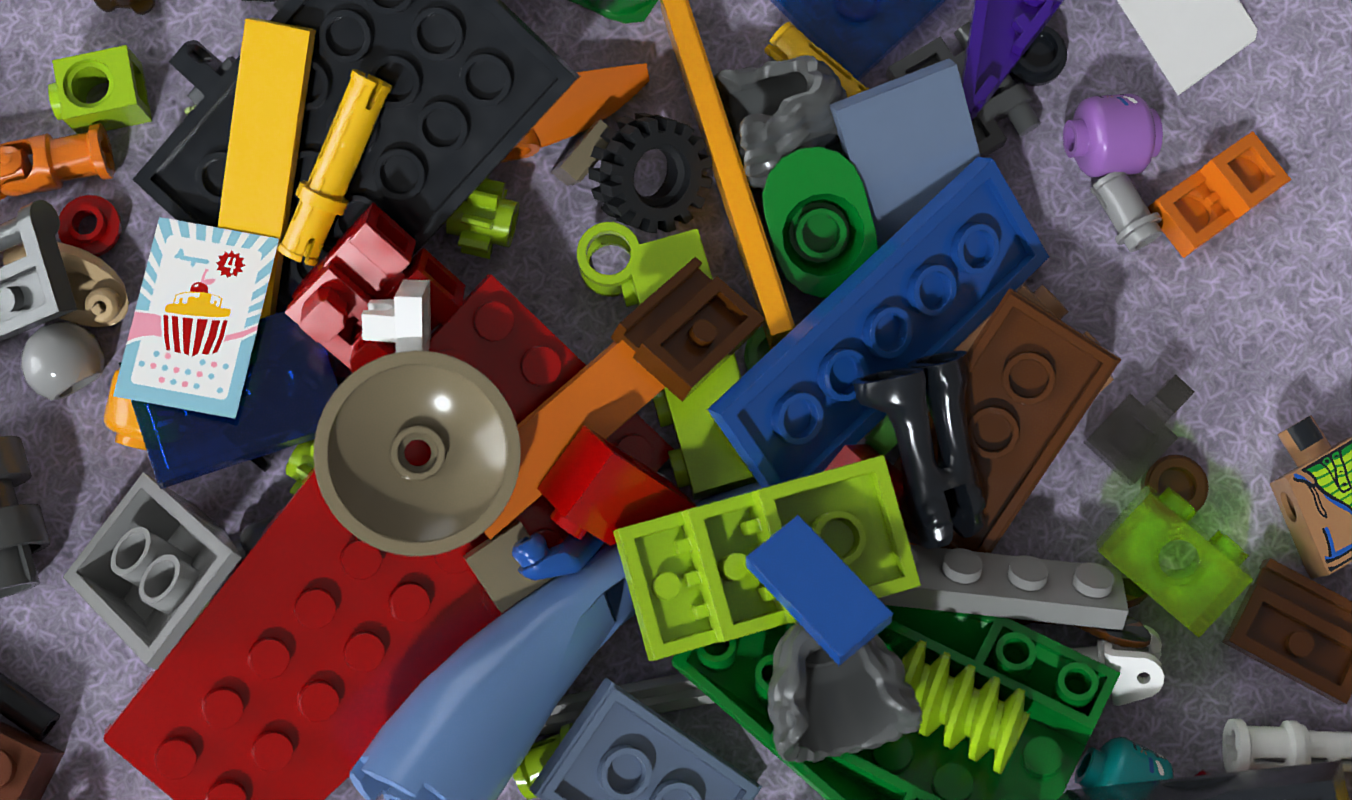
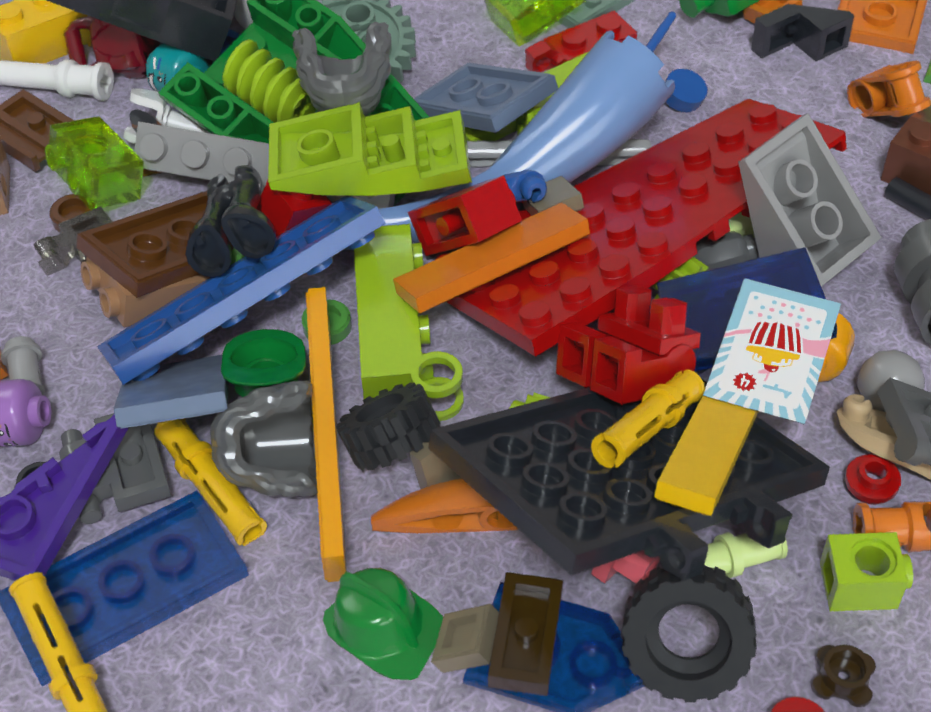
camera: 170 degrees left, 30 degrees down
(401, 319) = (599, 305): white tile -> none
(406, 505) = (604, 212): dark tan dish -> none
(688, 329) = (385, 284): reddish brown plate -> none
(818, 590) = (338, 93): blue tile -> none

